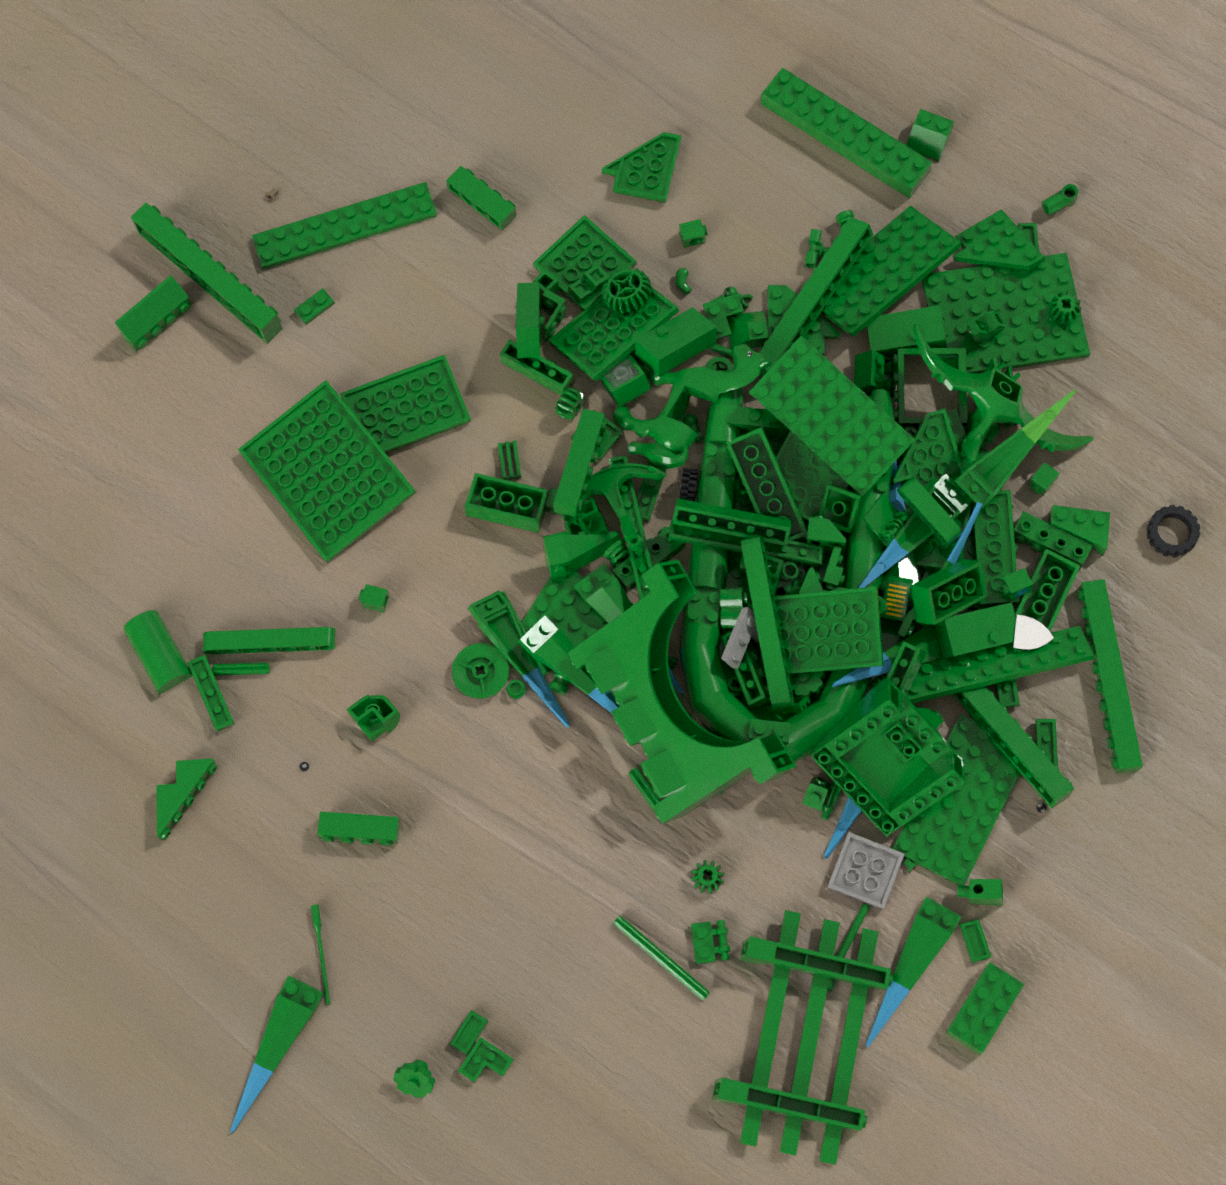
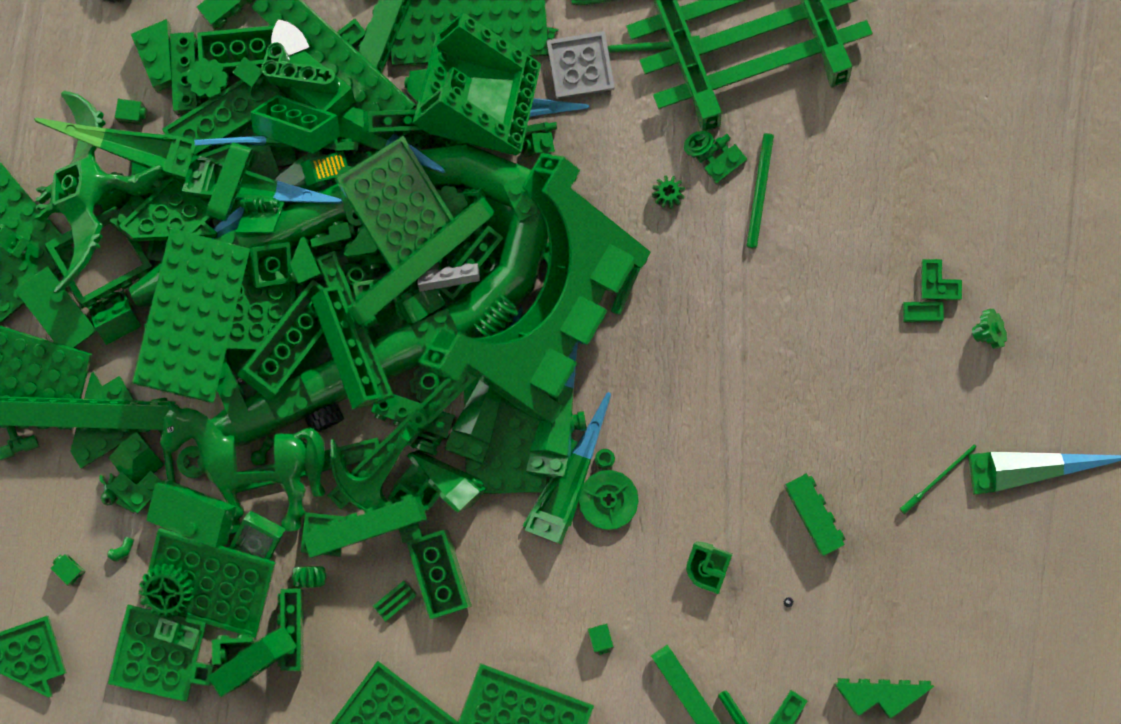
camera: 125 degrees left, 10 degrees up
(681, 657) = (497, 318): none -> green piece
(735, 920) = (701, 137): none -> green gear
(989, 620) = (322, 81): none -> green beam
(1033, 549) = (207, 78): none -> green plant

